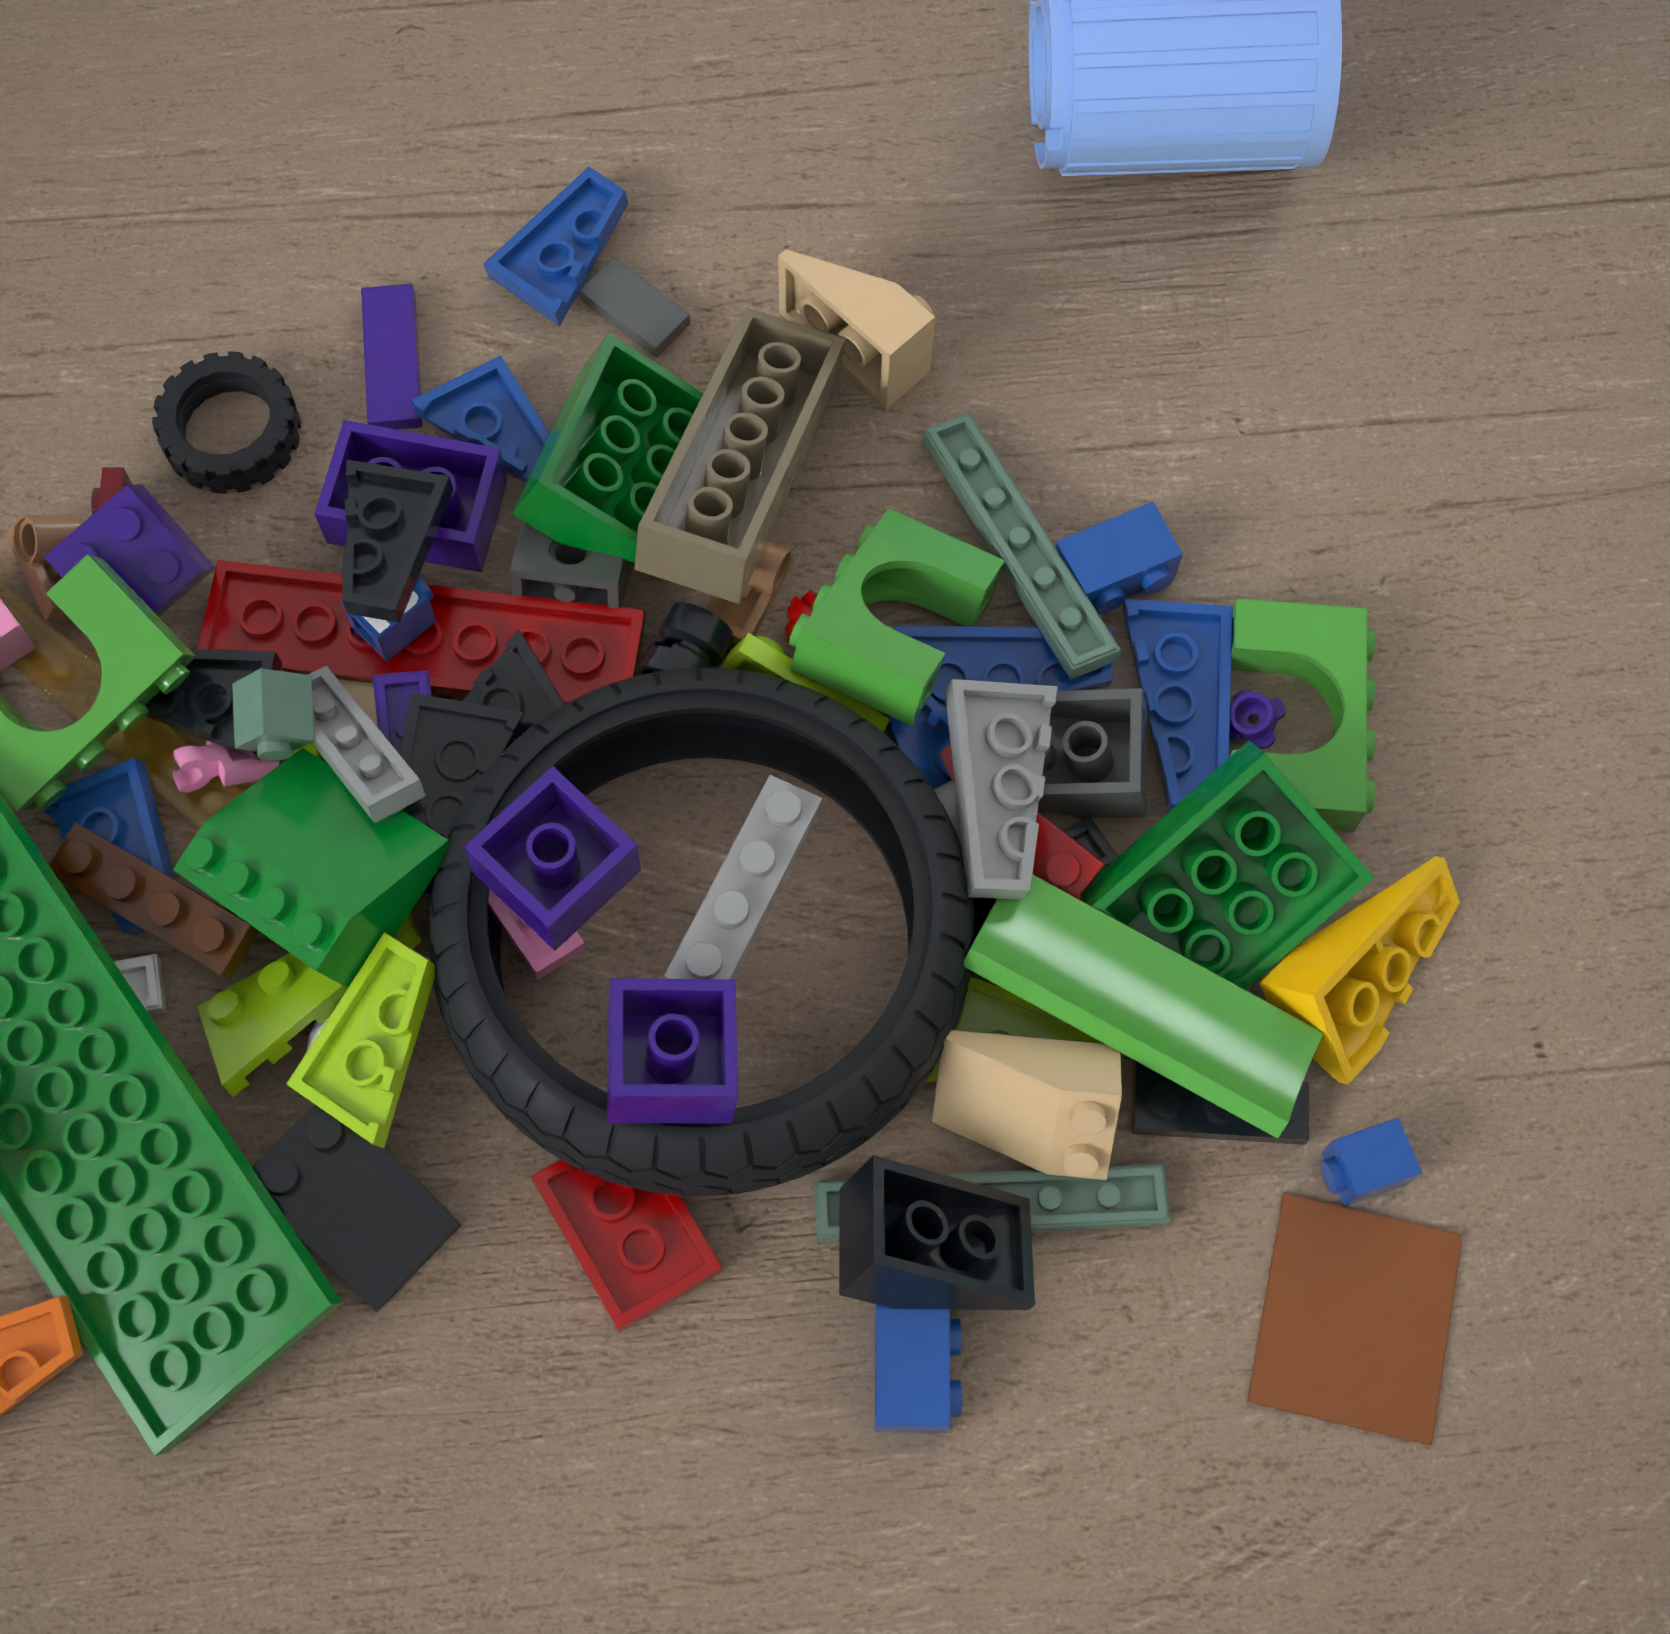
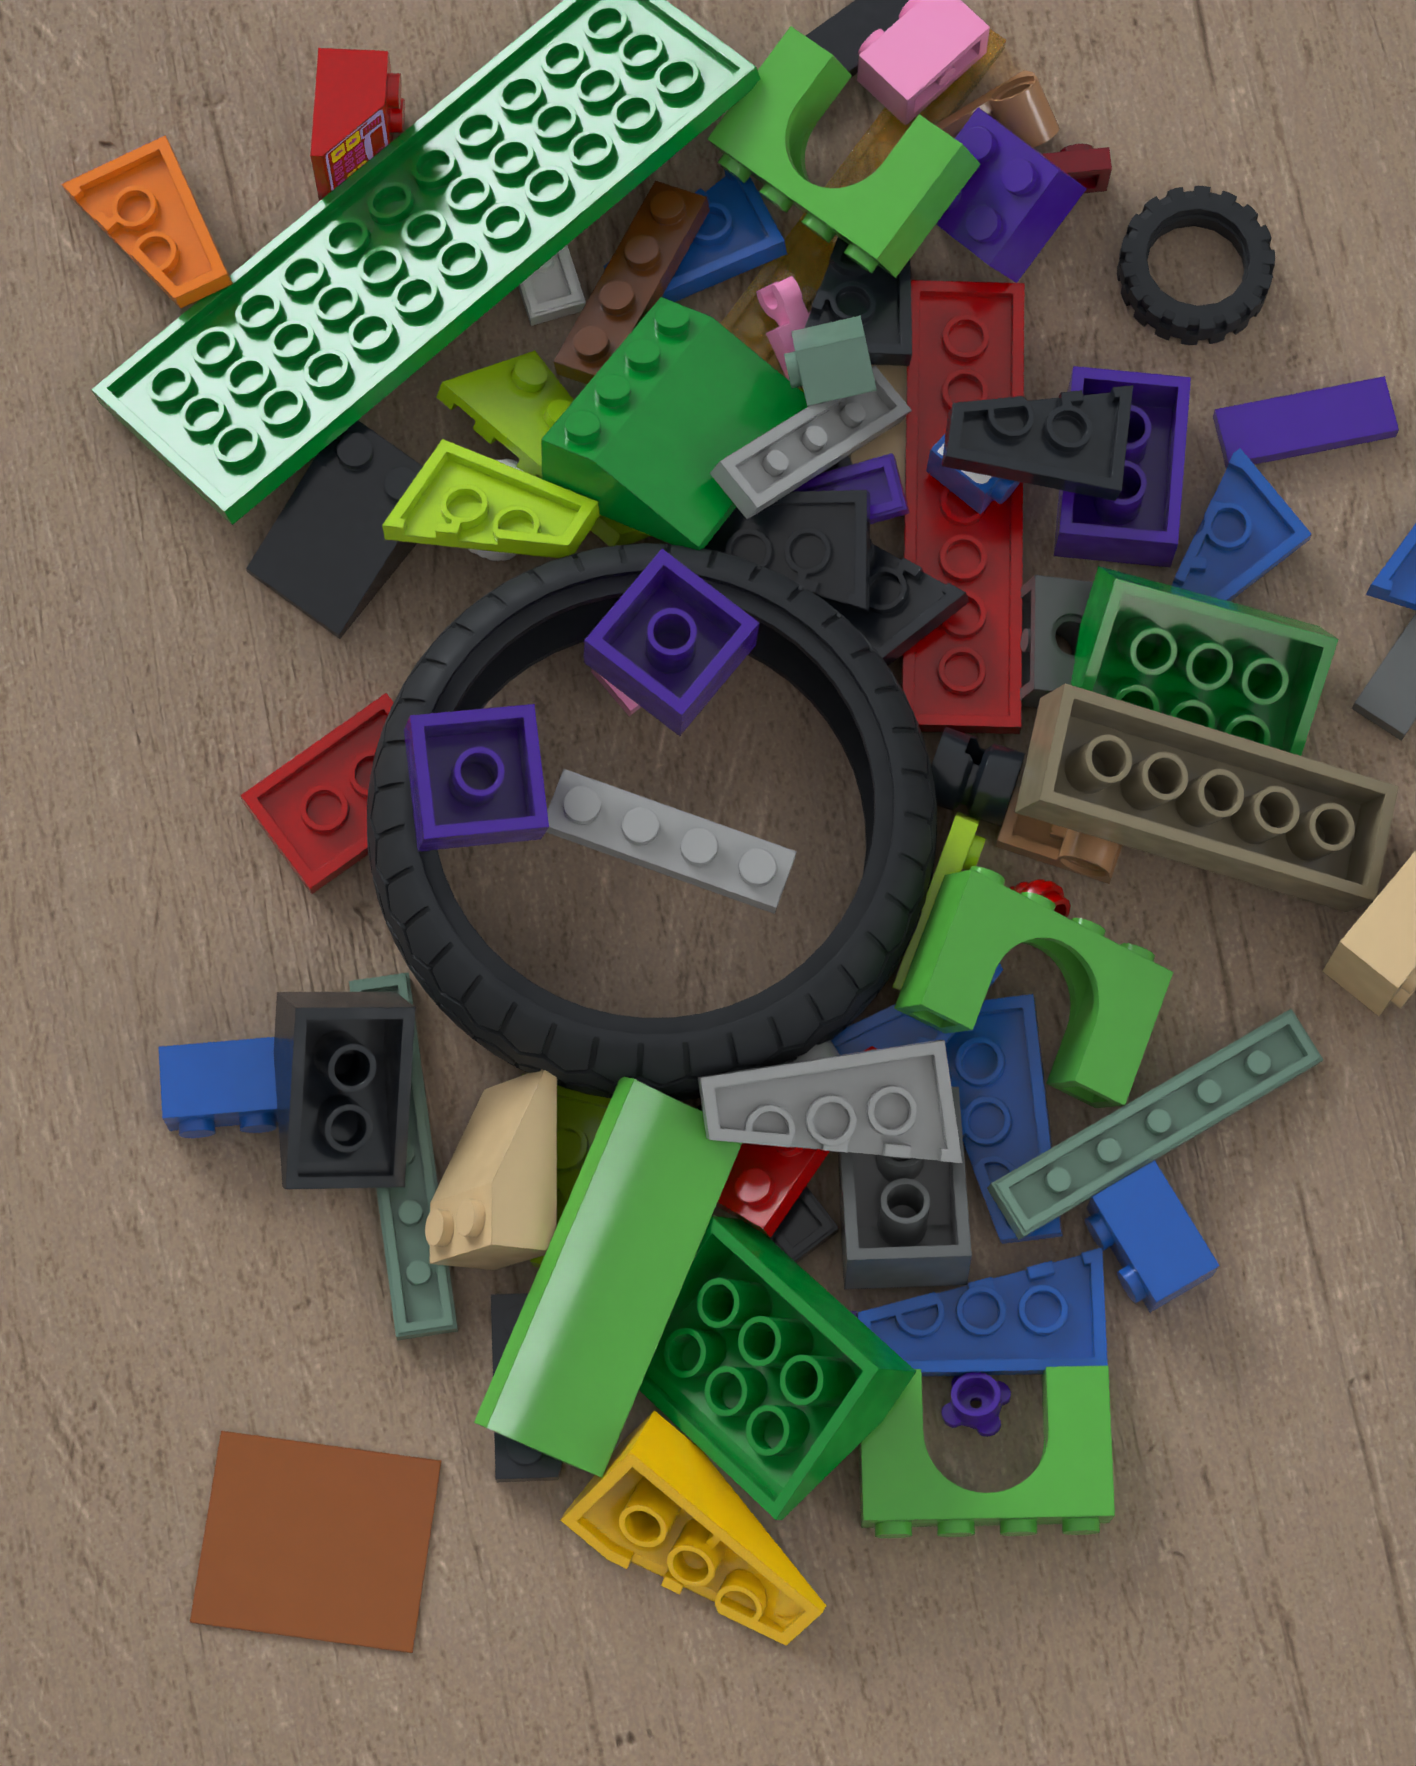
camera: 85 degrees right, 5 degrees up
(1369, 1162) = (473, 1541): blue brick -> none

